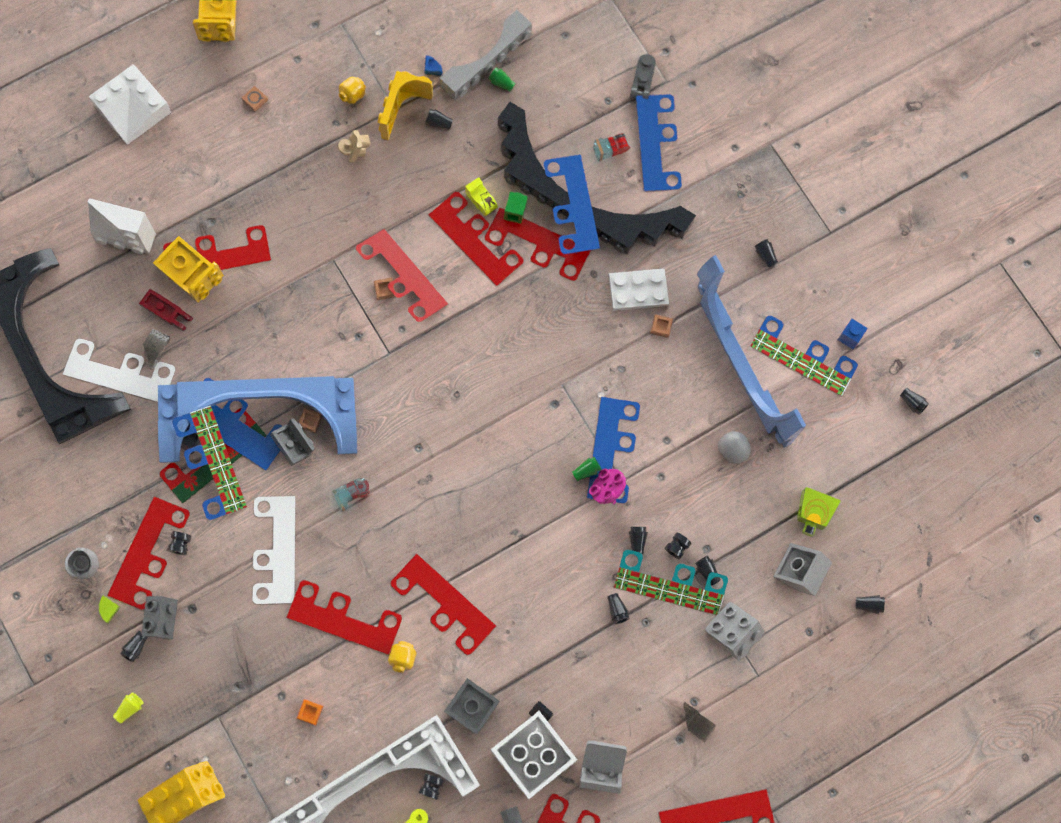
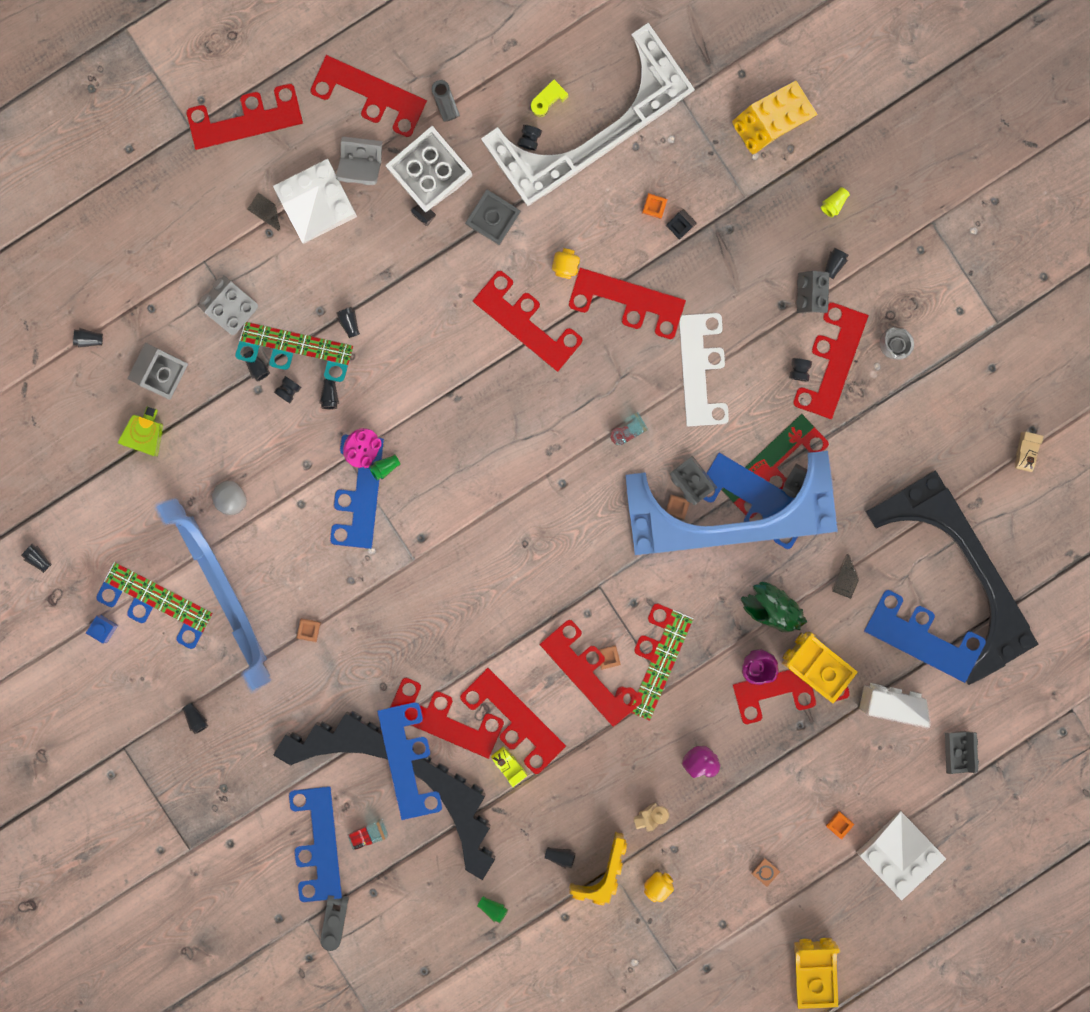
camera: 175 degrees left, 15 degrees up
(64, 188) = (961, 752): none -> dark grey bracket
(94, 287) = (917, 642): none -> blue piece
(107, 609) = (866, 300): lime tile -> none
(120, 379) = (877, 543): white piece -> none
(164, 309) = (841, 621): dark red hinge -> none
(183, 134) = (840, 825): none -> orange tile
(216, 456) = (770, 460): piece -> none
(225, 320) = (774, 608): none -> dark green head
(243, 270) = (760, 667): none -> magenta hair
(284, 693) = (681, 224): none -> black slope
(305, 190) = (701, 762): none -> magenta hair
(334, 286) = (661, 657): none -> piece
(432, 67) = (571, 923): blue tile -> none
(461, 78) = (539, 907): light grey arch -> none
(515, 207) = (470, 756): green brick -> none
(638, 289) = (334, 670): white plate -> none
(648, 729) = (315, 201): none -> white slope

